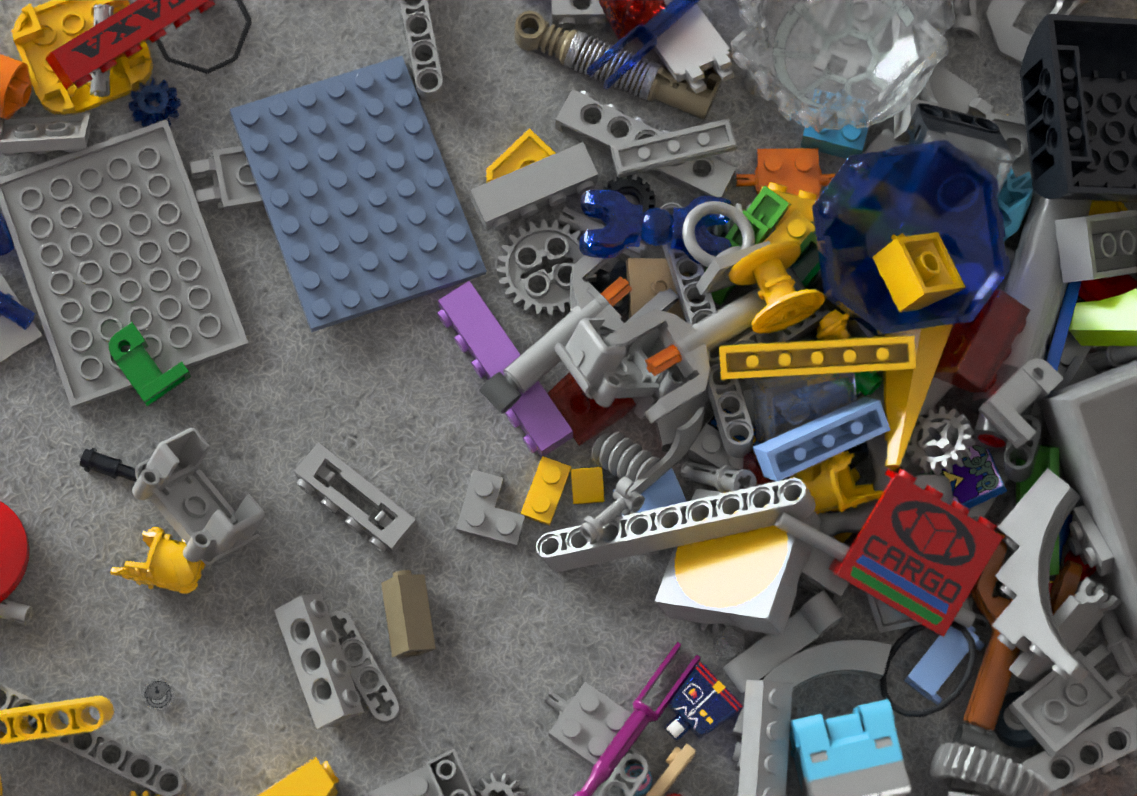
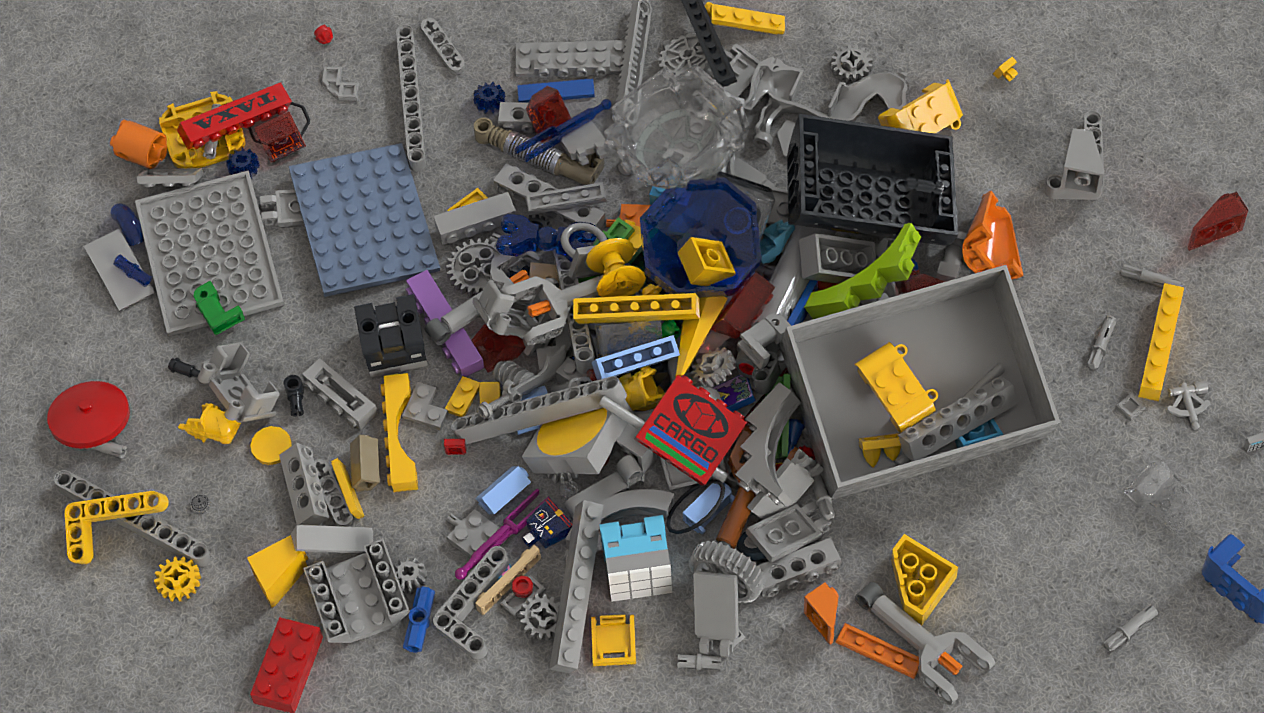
camera: 10 degrees right, 15 degrees down
(208, 55) = (279, 137): none -> clear red slope
(257, 588) = (269, 444): none -> yellow tile
(285, 504) = (294, 395): none -> black pin
(376, 756) = (331, 538): none -> light grey slope
(387, 664) = (348, 492): none -> yellow tile
(429, 403) = (391, 336): none -> black piece
(468, 622) = (402, 469): none -> yellow arch
(544, 579) = (455, 446): none -> red tile
(628, 649) = (503, 489): none -> light blue brick
(1089, 542) = (806, 435): light grey plate -> none

